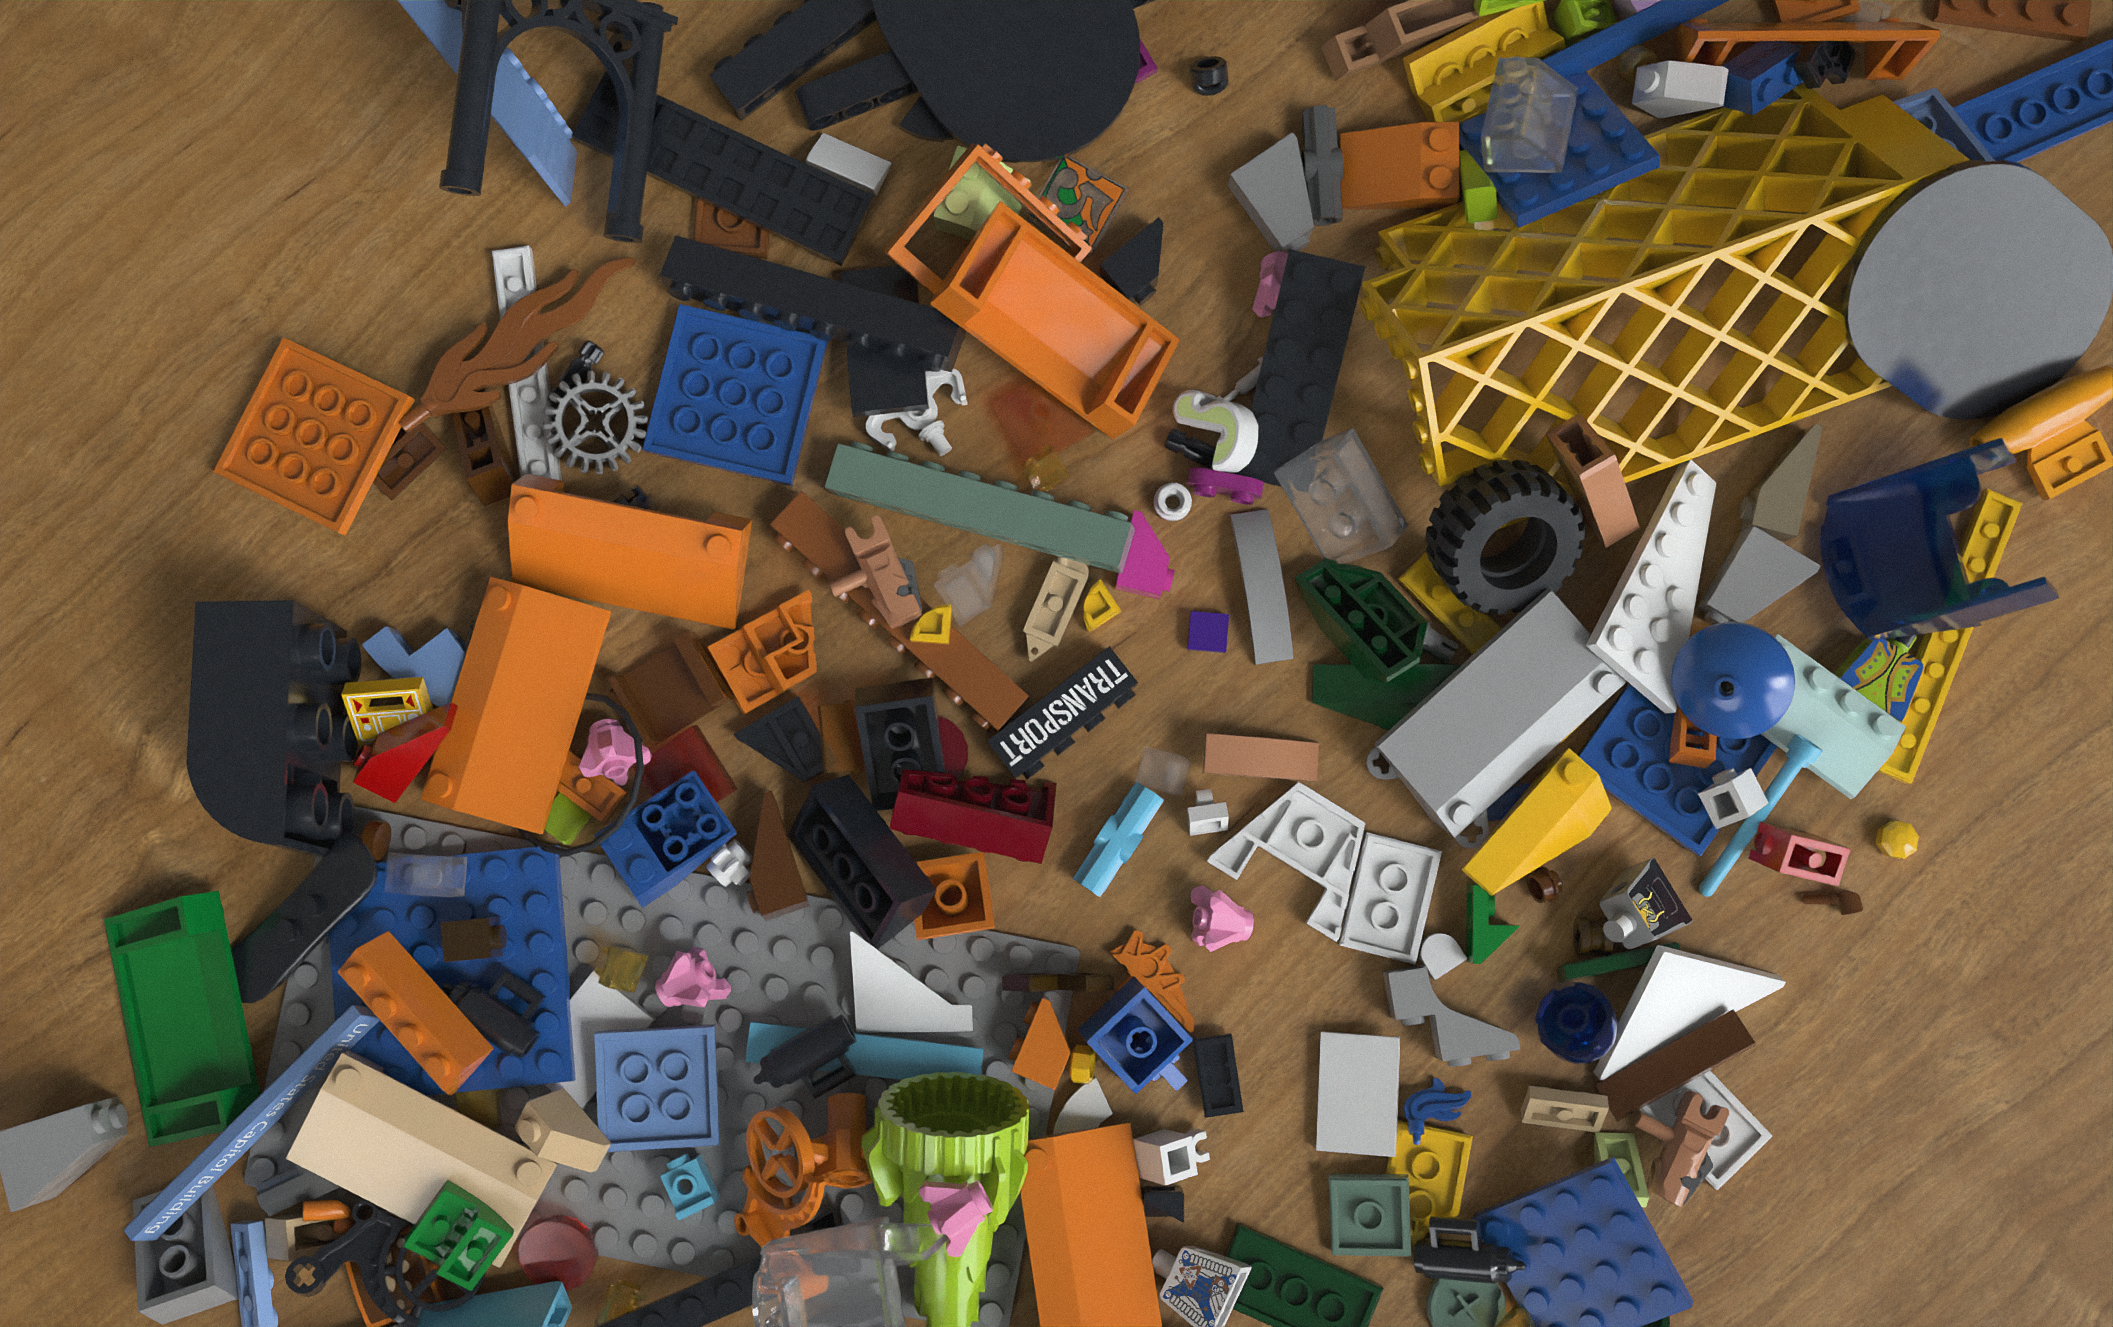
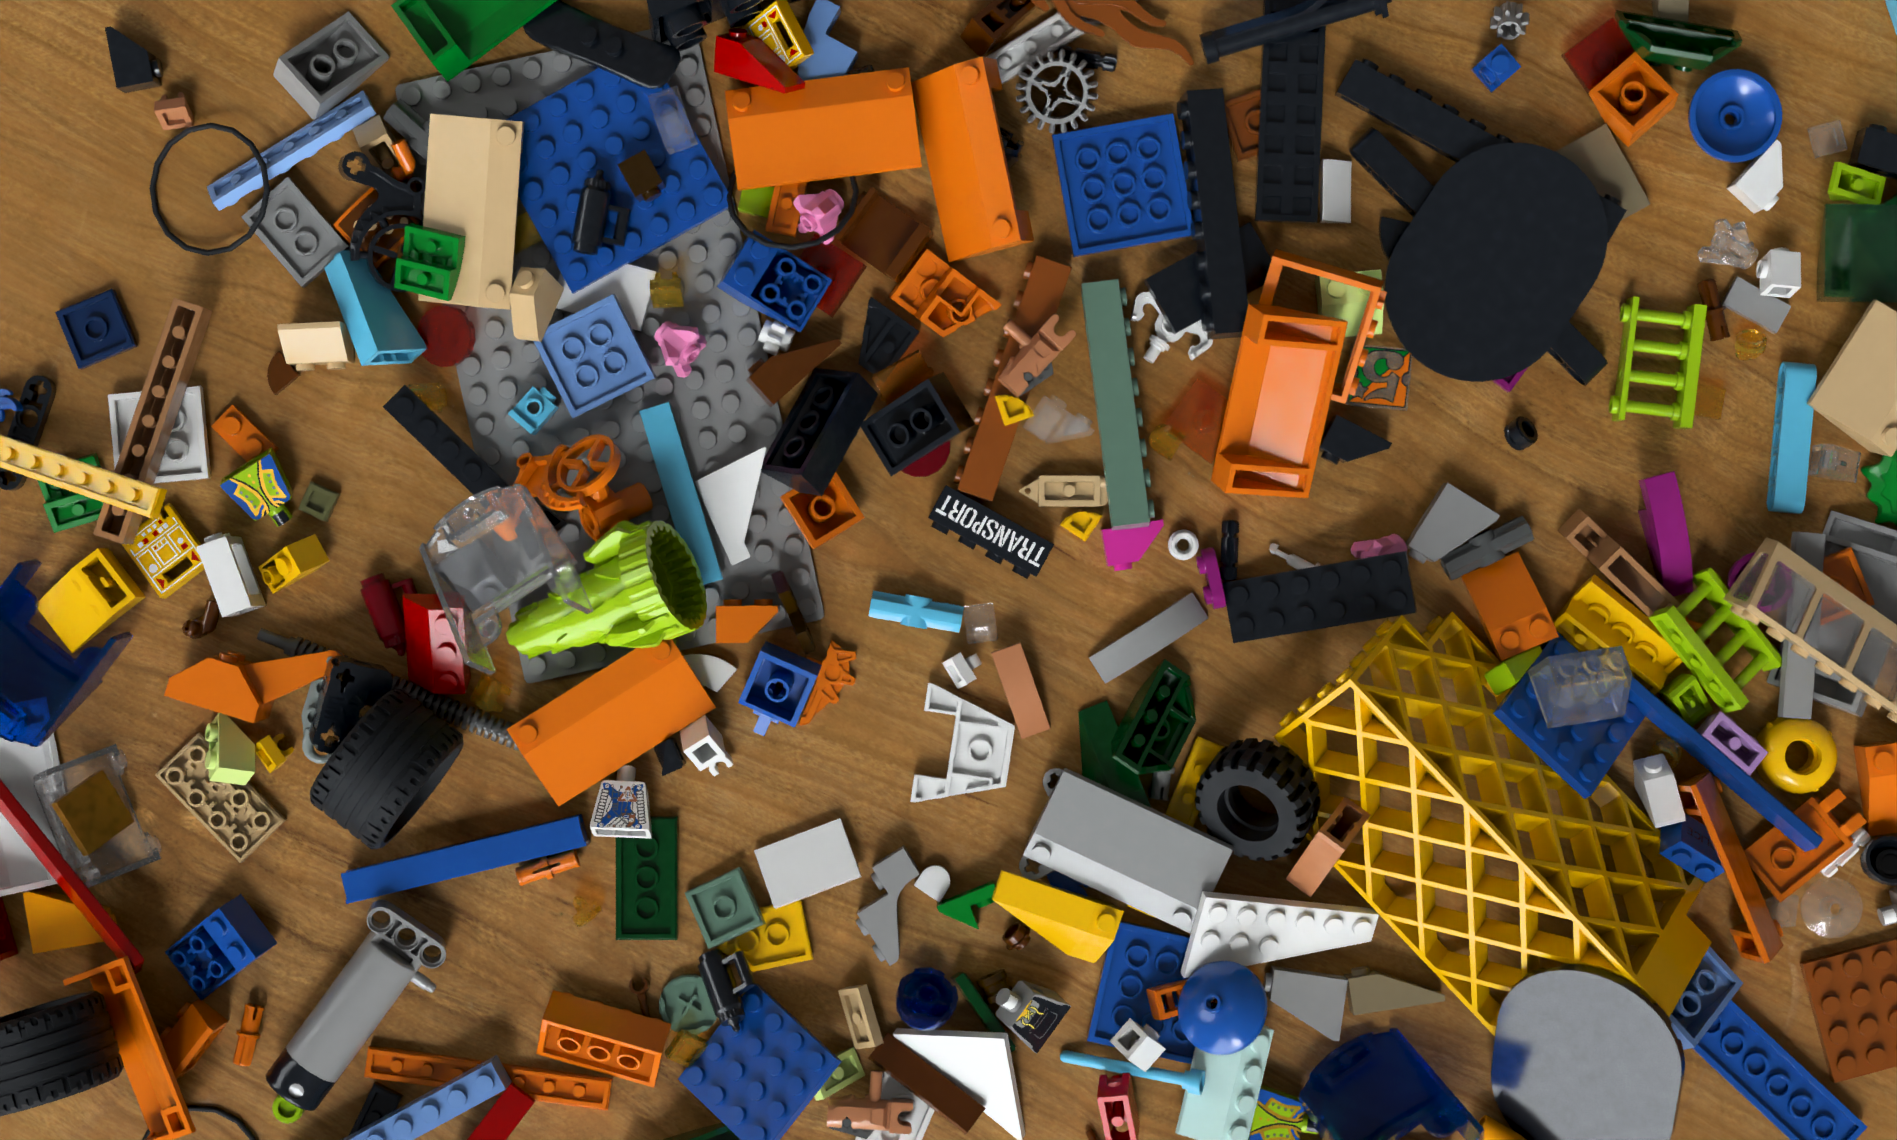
camera: 65 degrees right, 5 degrees up
(251, 1124) = (443, 77): medium blue tile -> none
(377, 838) = (686, 70): reddish brown tile -> none
(416, 1011) = (573, 160): orange slope -> none
(809, 1052) = (664, 453): black piece -> none
(956, 1211) = (604, 608): bright pink rock -> none
(976, 814) = (890, 500): dark red wedge -> none
(1082, 1064) = (742, 655): yellow tile -> none
(1208, 632) = (1097, 612): dark purple tile -> none
(1218, 919) = (889, 709): bright pink rock -> none
(1218, 1075) = (777, 756): black plate -> none
(1231, 419) = (1260, 563): white animal -> none
(1342, 499) = (1237, 669): clear slope -> none
(1390, 898) = (959, 828): white tile -> none
(1432, 1104) = (823, 921): blue piece -> none
(1824, 60) = (1717, 886): black tile -> none

